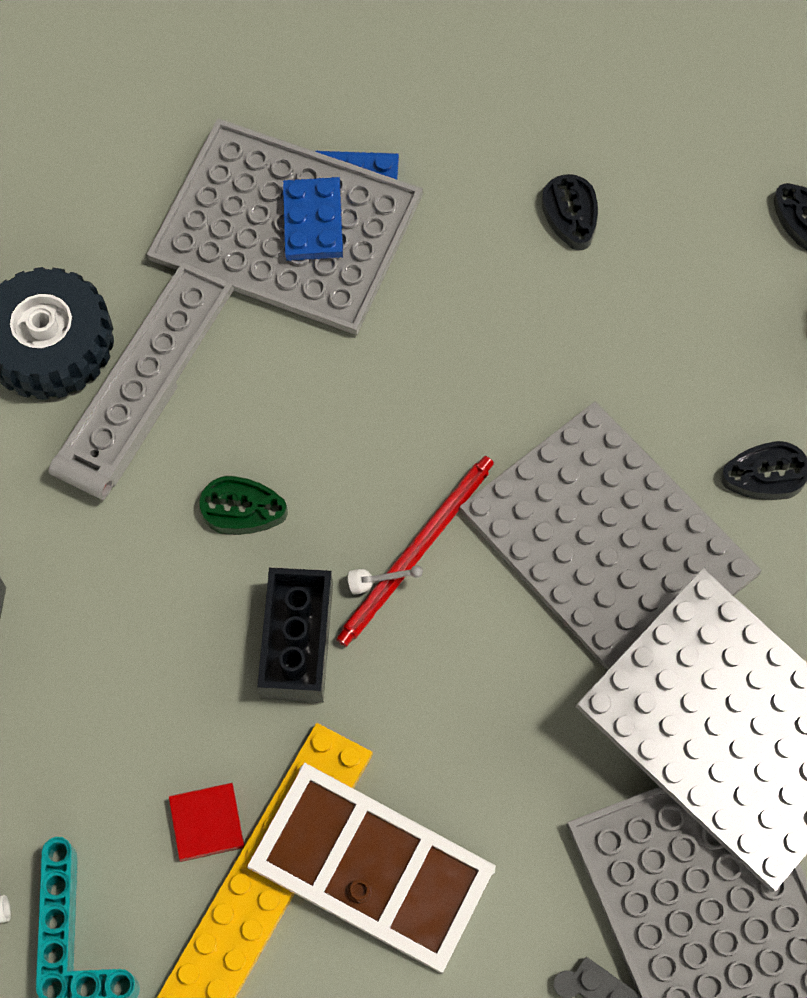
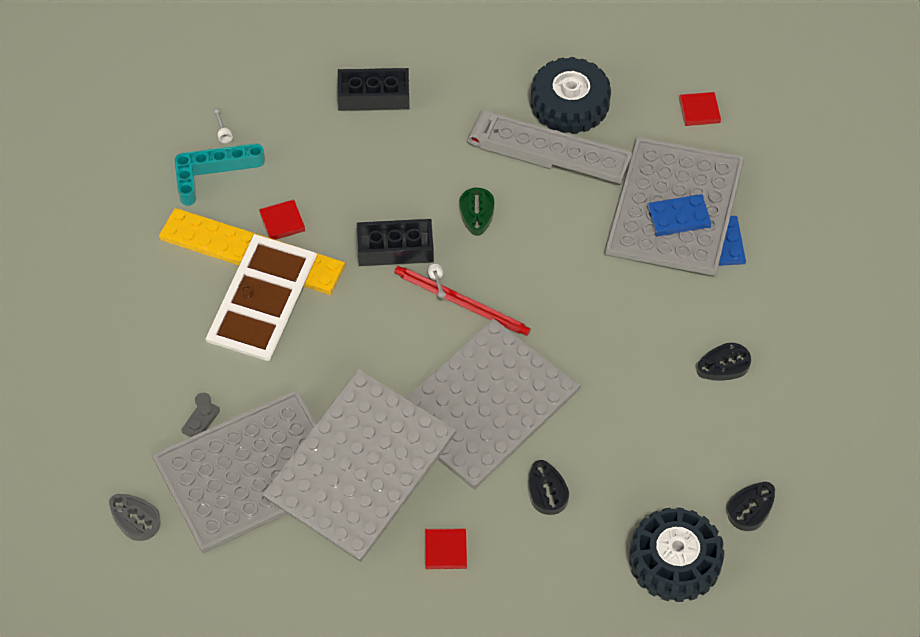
camera: 80 degrees right, 10 degrees down
(103, 166) = (700, 108): none -> red tile

